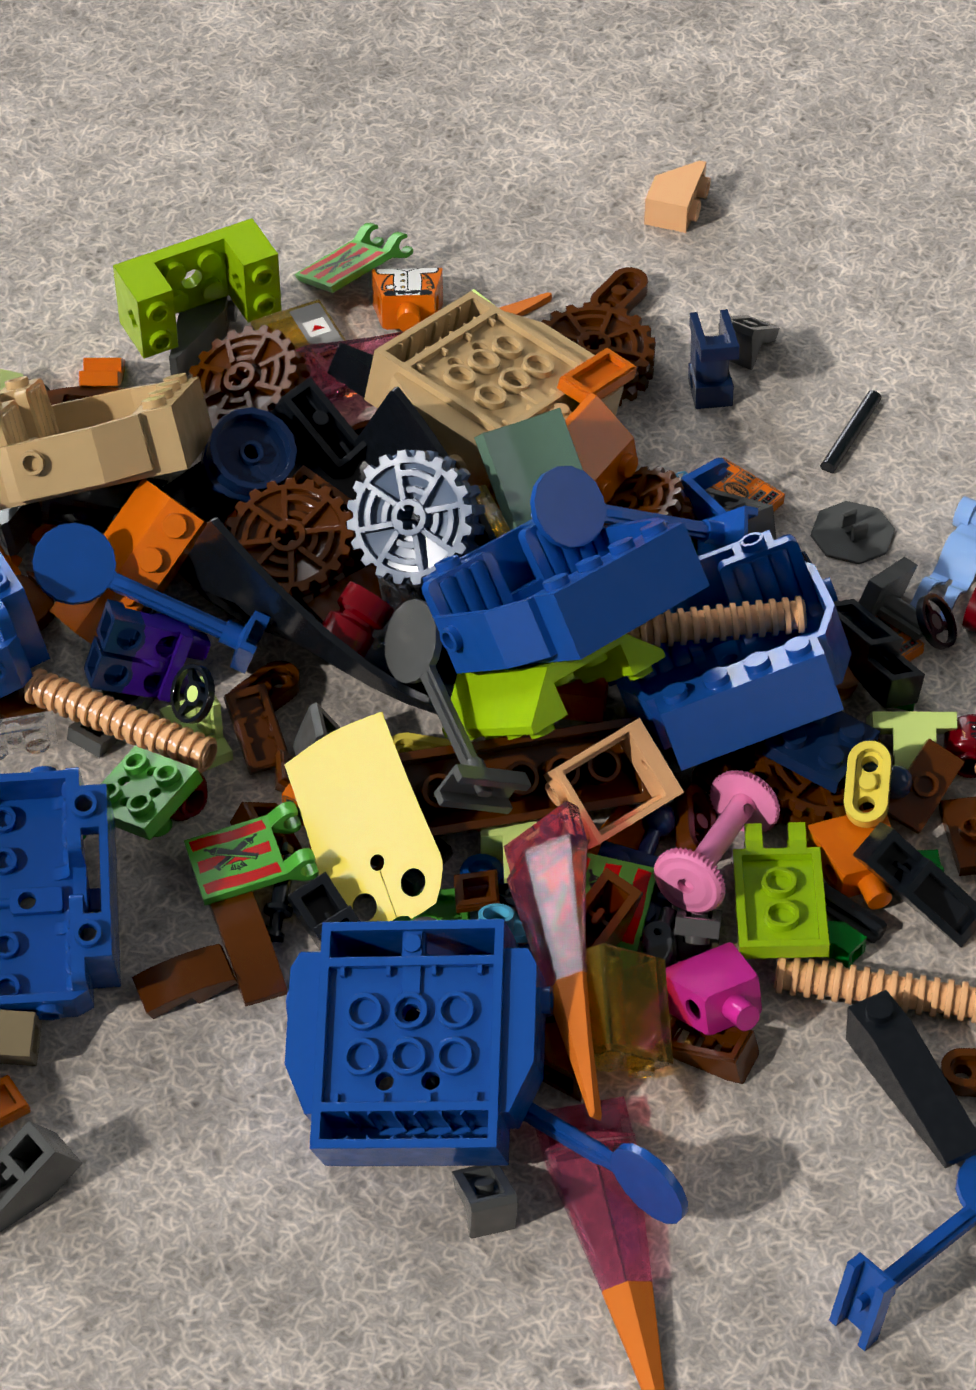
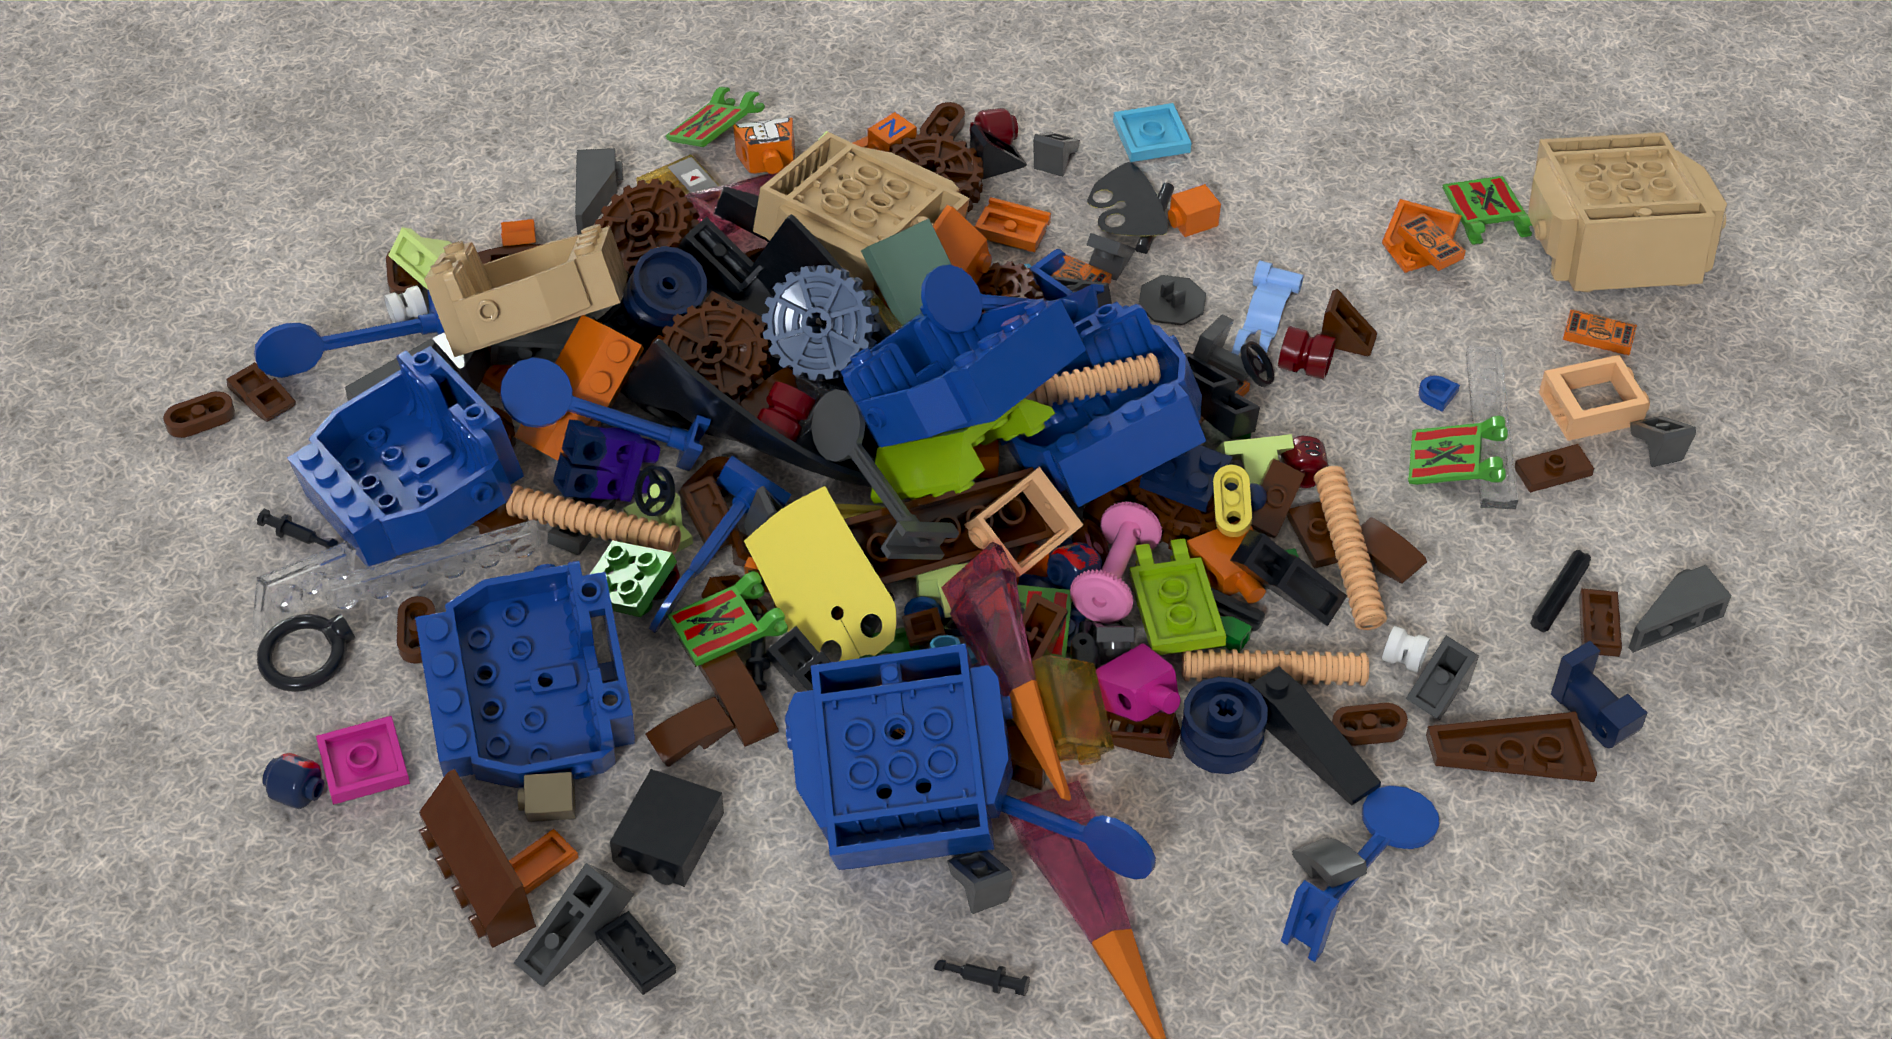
camera: 10 degrees left, 0 degrees up
(72, 1232) = (635, 952): none -> black plate
(135, 1091) = (666, 828): none -> black brick
(225, 263) = (613, 129): lime plate -> none
(296, 693) = (742, 483): none -> blue piece
(481, 1319) = (986, 976): none -> black piece
(553, 296) = (890, 131): none -> orange brick
(597, 375) = (949, 189): orange tile -> none
(661, 833) = (1070, 561): none -> dark blue head
(670, 332) = (996, 154): none -> black slope
(675, 303) = (999, 123): none -> dark red head
(676, 197) = (973, 41): light nougat slope -> none
(678, 422) = (1013, 224): none -> orange plate
(709, 363) = (1031, 171): dark blue piece -> none
(786, 470) = (1109, 255): none -> dark grey slope
(808, 1052) = (1223, 725): none -> dark blue wheel
(839, 420) = (1143, 209): none -> black piece
(867, 327) = (1152, 132): none -> medium azure plate
(898, 427) = (1194, 210): none -> orange brick
(904, 1232) = (1331, 861): none -> dark grey slope

